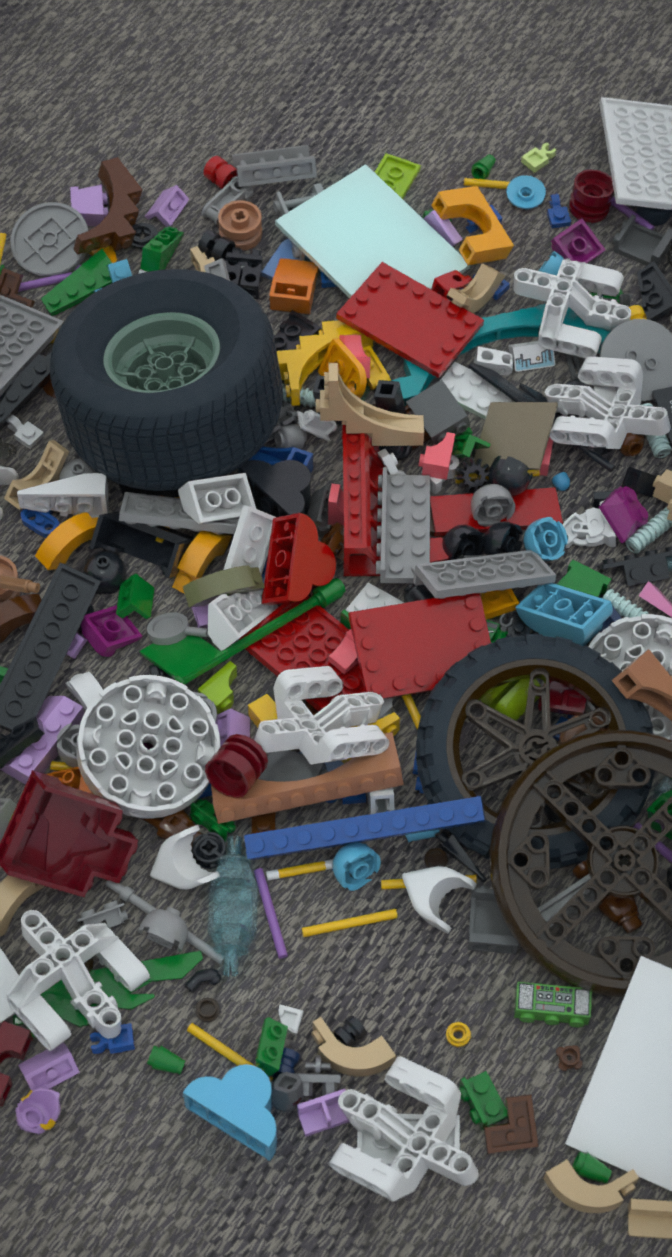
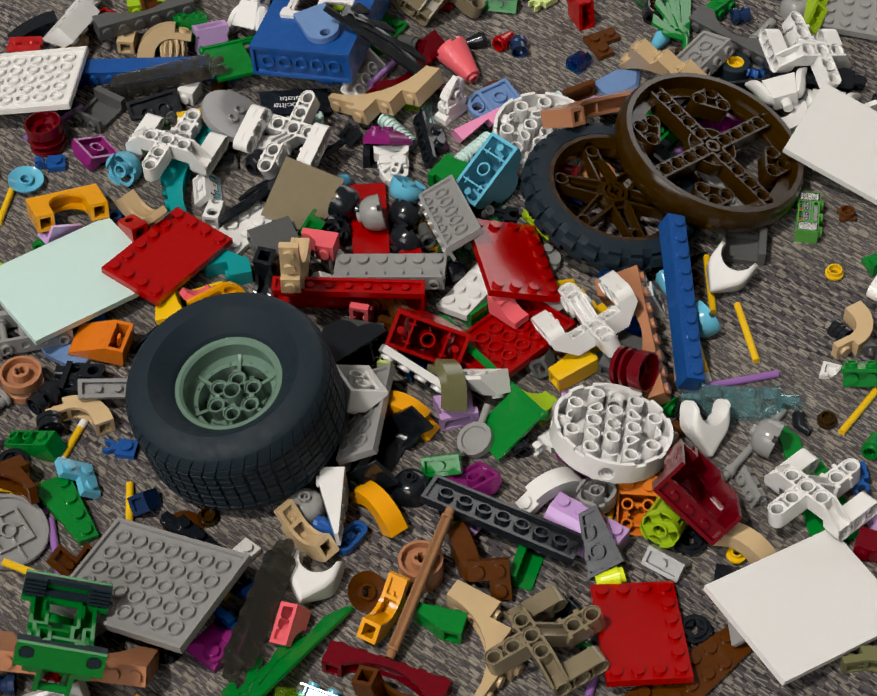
camera: 85 degrees left, 10 degrees down
(183, 255) = (50, 421): none -> black wheel

